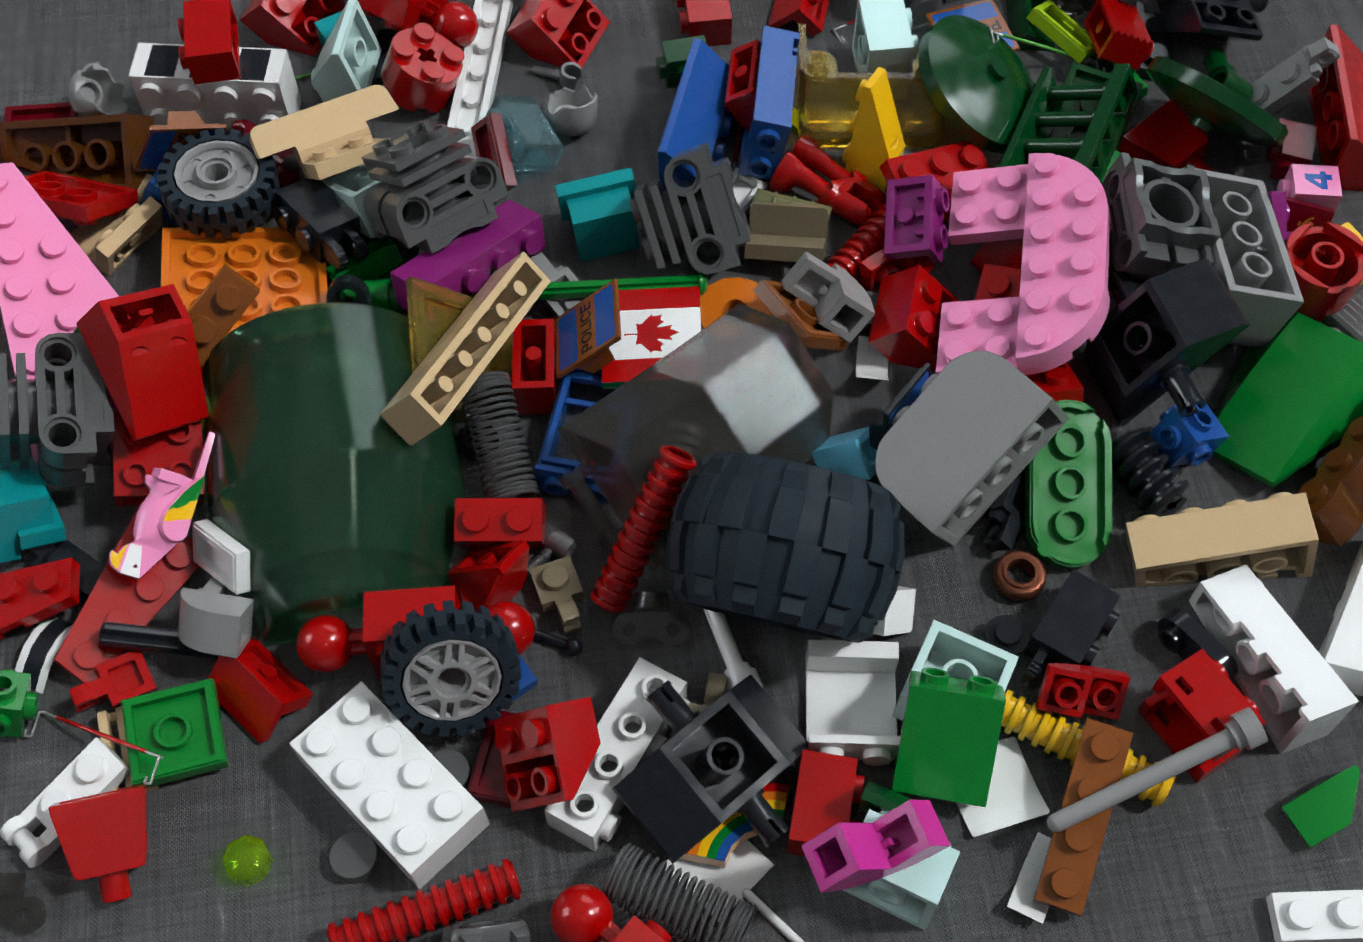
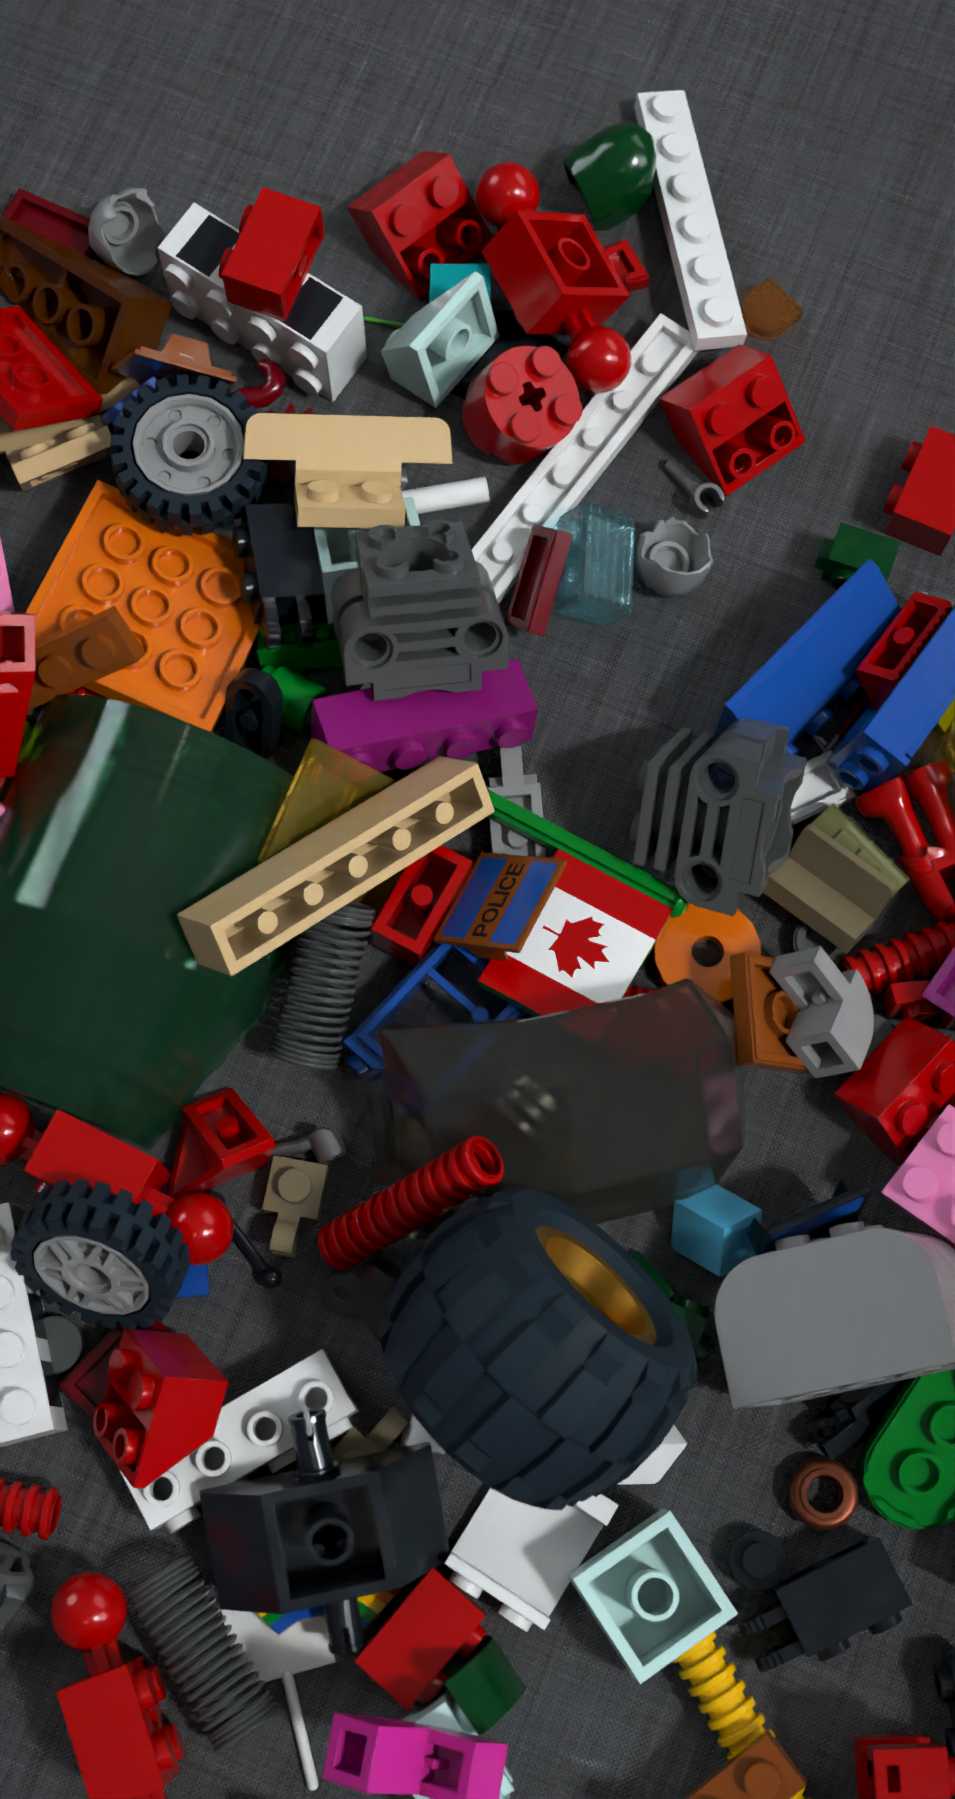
camera: 30 degrees right, 15 degrees up
(499, 521) = (267, 1088): red brick -> none
(600, 213) = (615, 734): teal plate -> none
(870, 361) = (823, 1119): white sticker -> none
(949, 737) = (599, 1657): green panel -> none
(1011, 794) = (626, 1727): white sticker -> none
(1083, 689) = (788, 1682): red slope -> none

